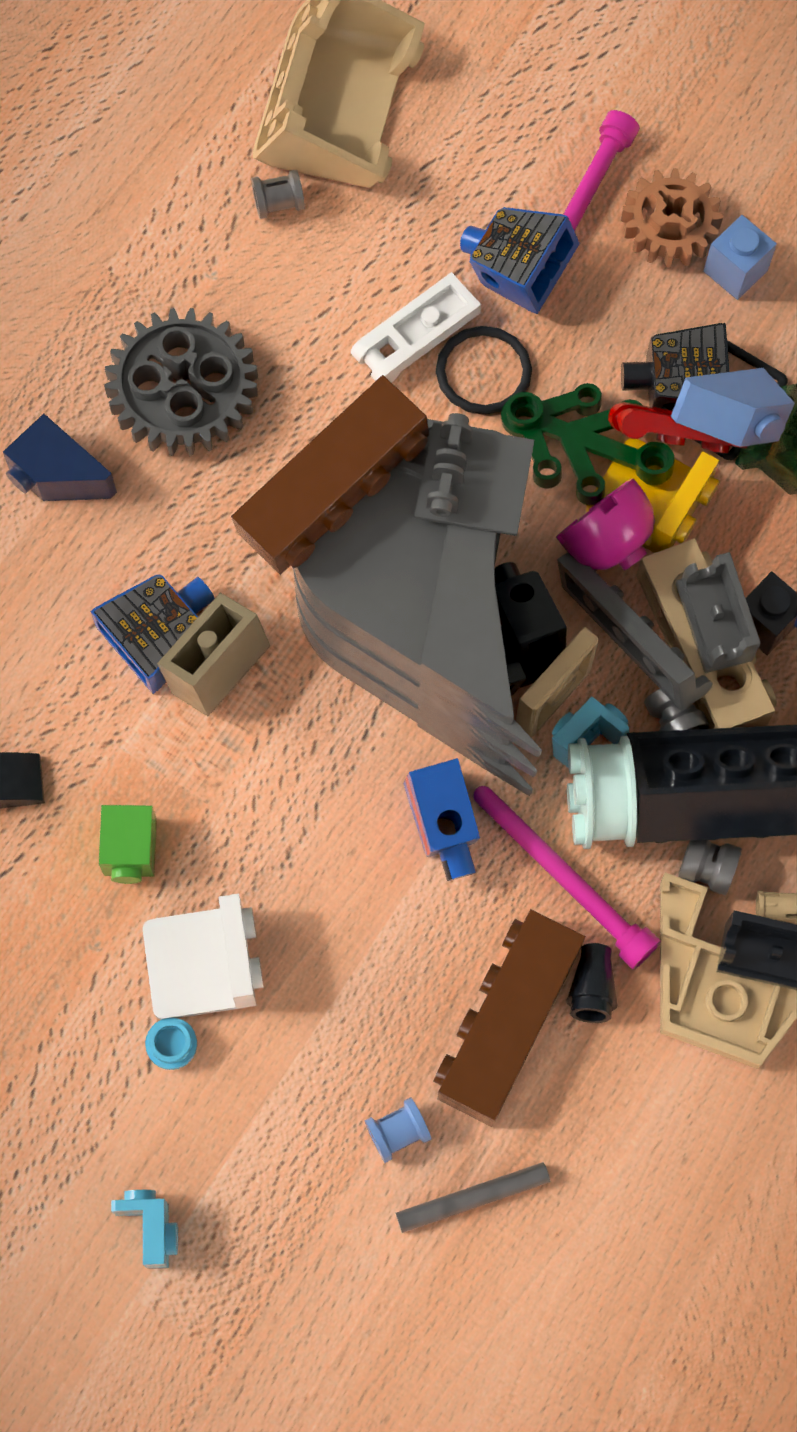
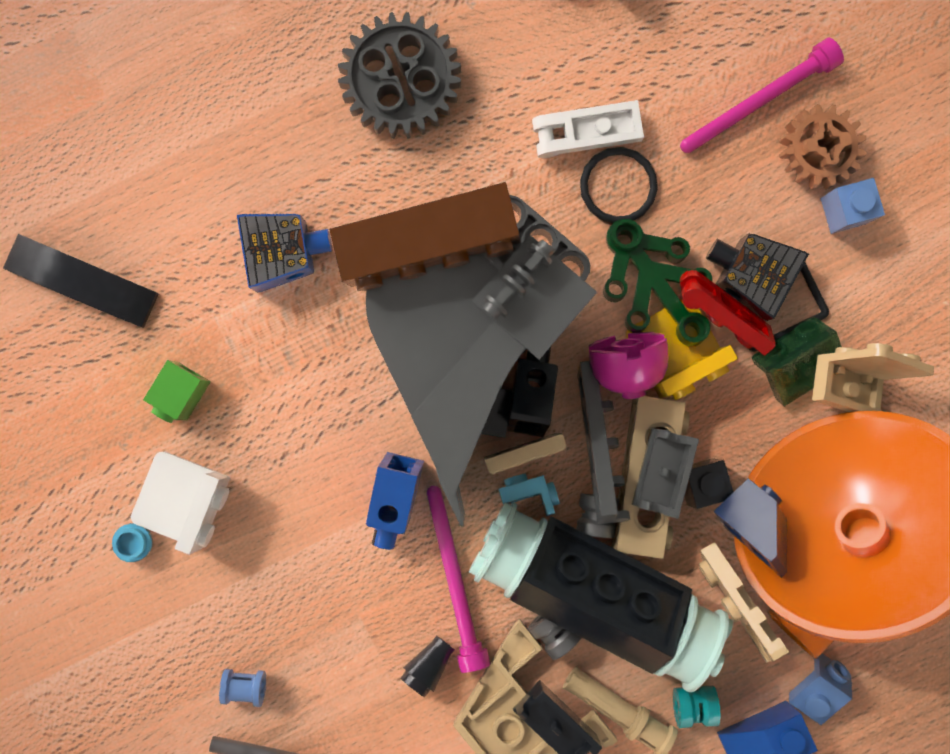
camera: 30 degrees right, 15 degrees up
(56, 465) = (276, 88): dark blue slope -> none
(159, 1235) = (52, 662): medium azure bracket -> none
(214, 654) = (304, 294): dark tan brick -> none
(509, 1018) = (358, 658): reddish brown brick -> none
(521, 254) = (695, 115): torso -> none
(734, 406) = (774, 328): medium blue slope -> none

